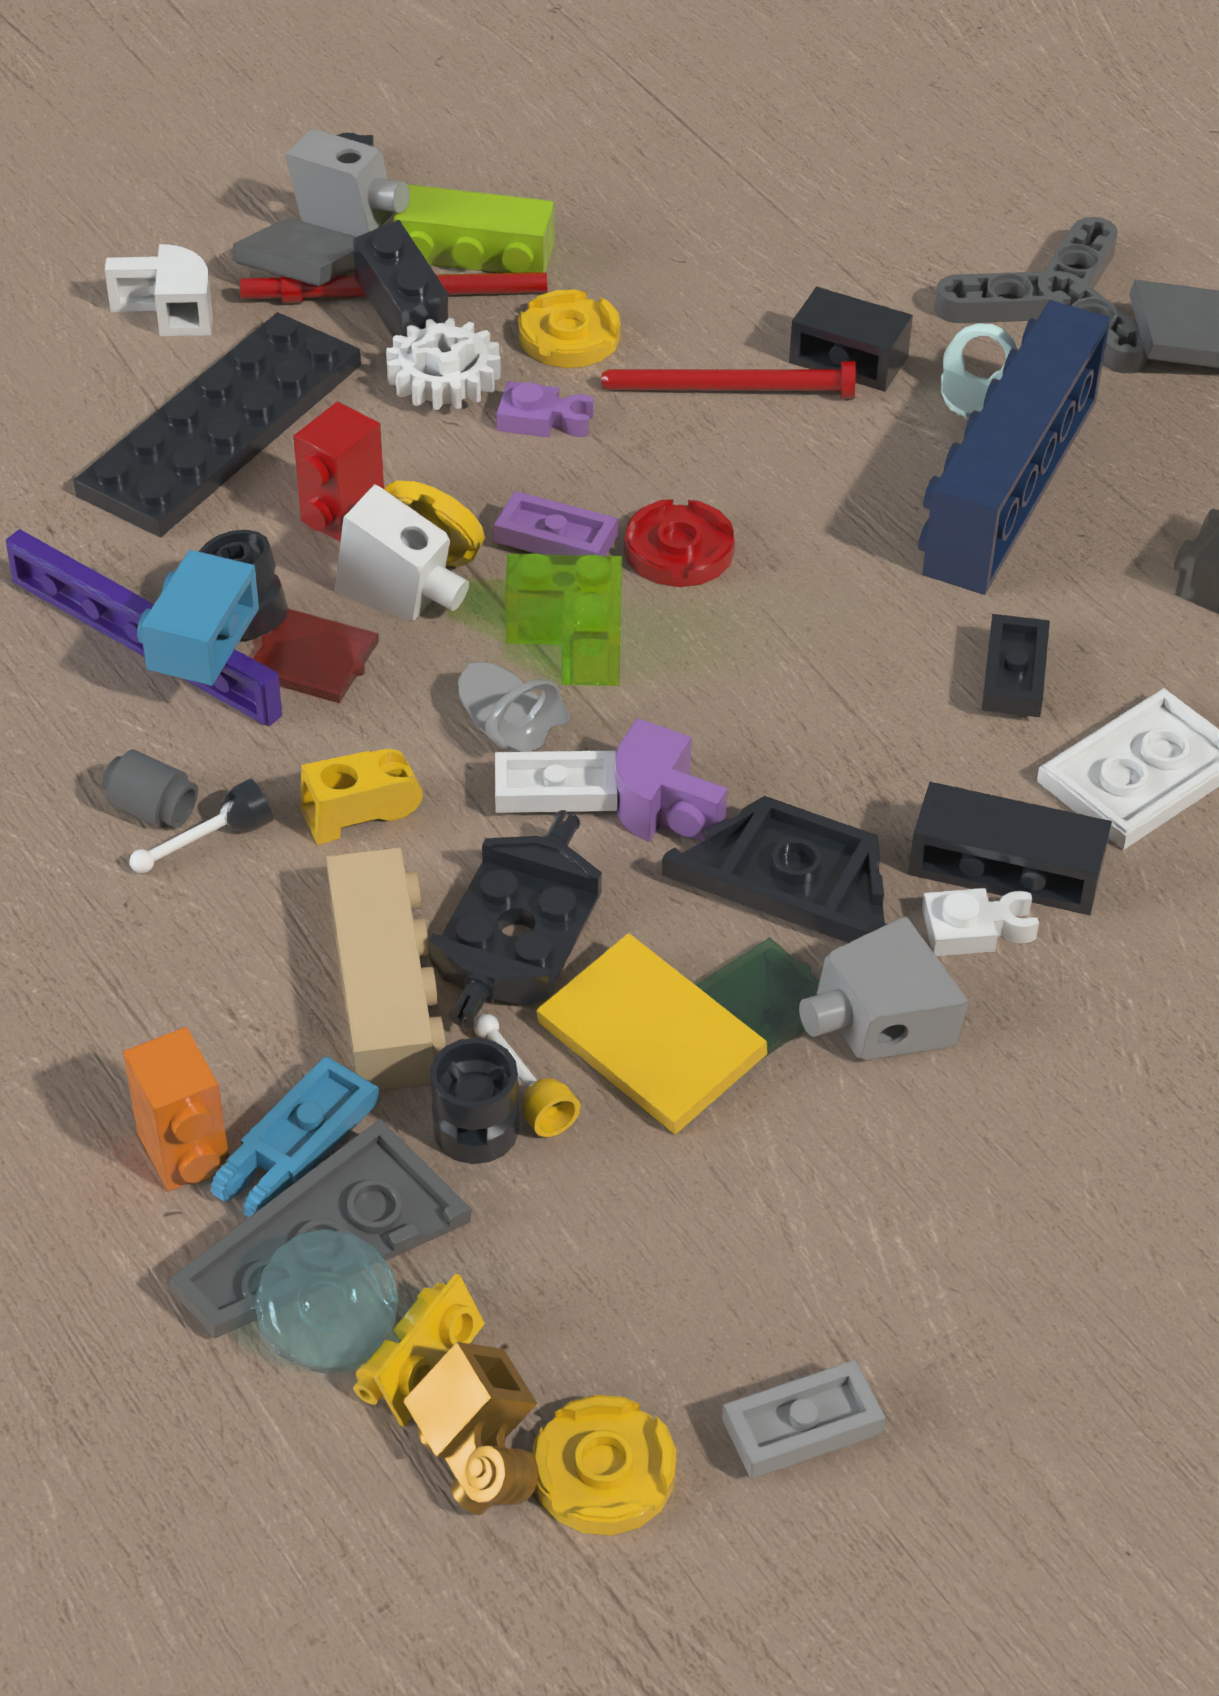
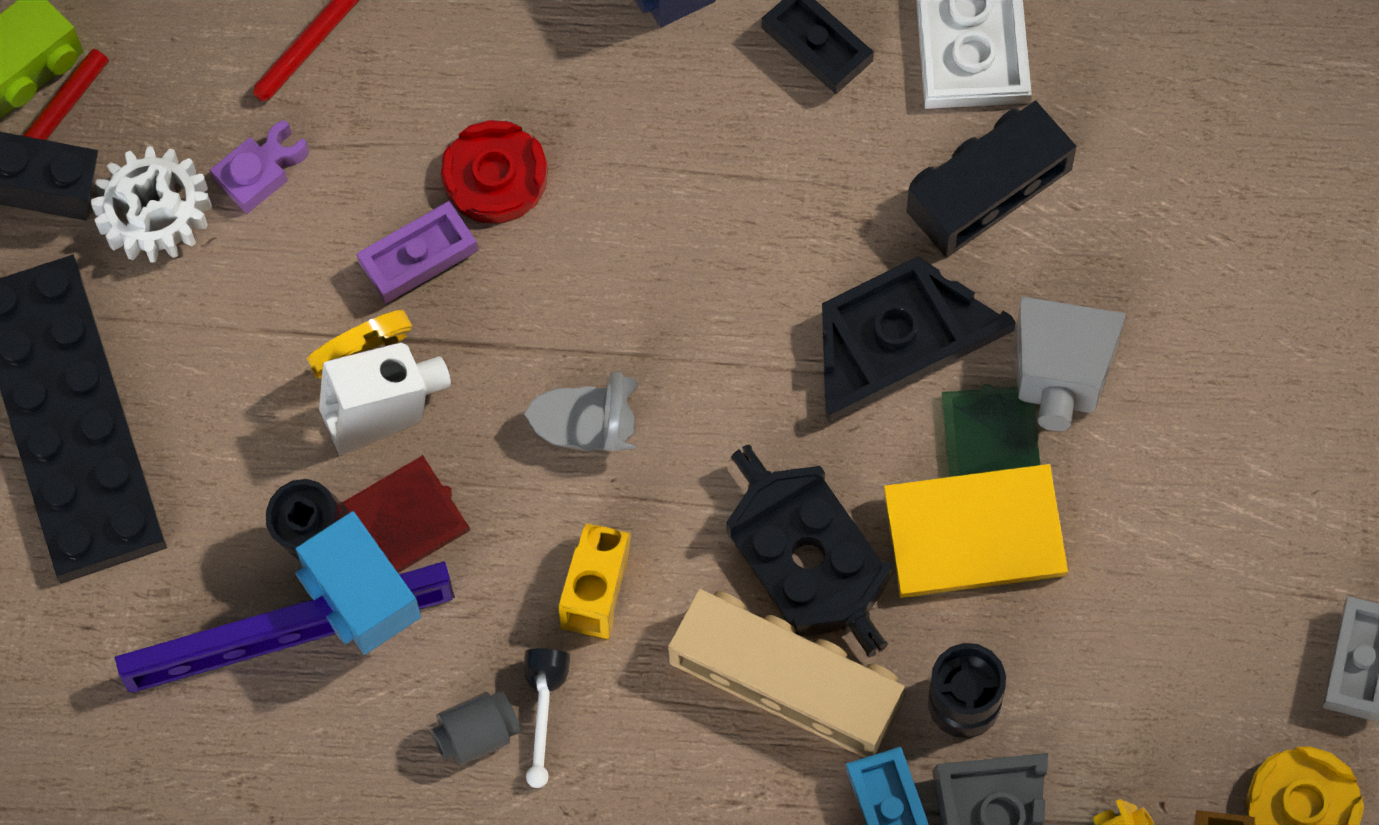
camera: 50 degrees left, 20 degrees up
(336, 466) = (245, 372): red piece -> none
(547, 1102) = (989, 634): yellow hinge -> none
(555, 781) = (689, 433): white plate -> none
(569, 329) = (173, 78): yellow tile -> none
(571, 605) = (524, 293): clear neon green brick -> none
(658, 787) = (754, 377): medium lavender brick -> none
(970, 923) = (1026, 253): white plate -> none

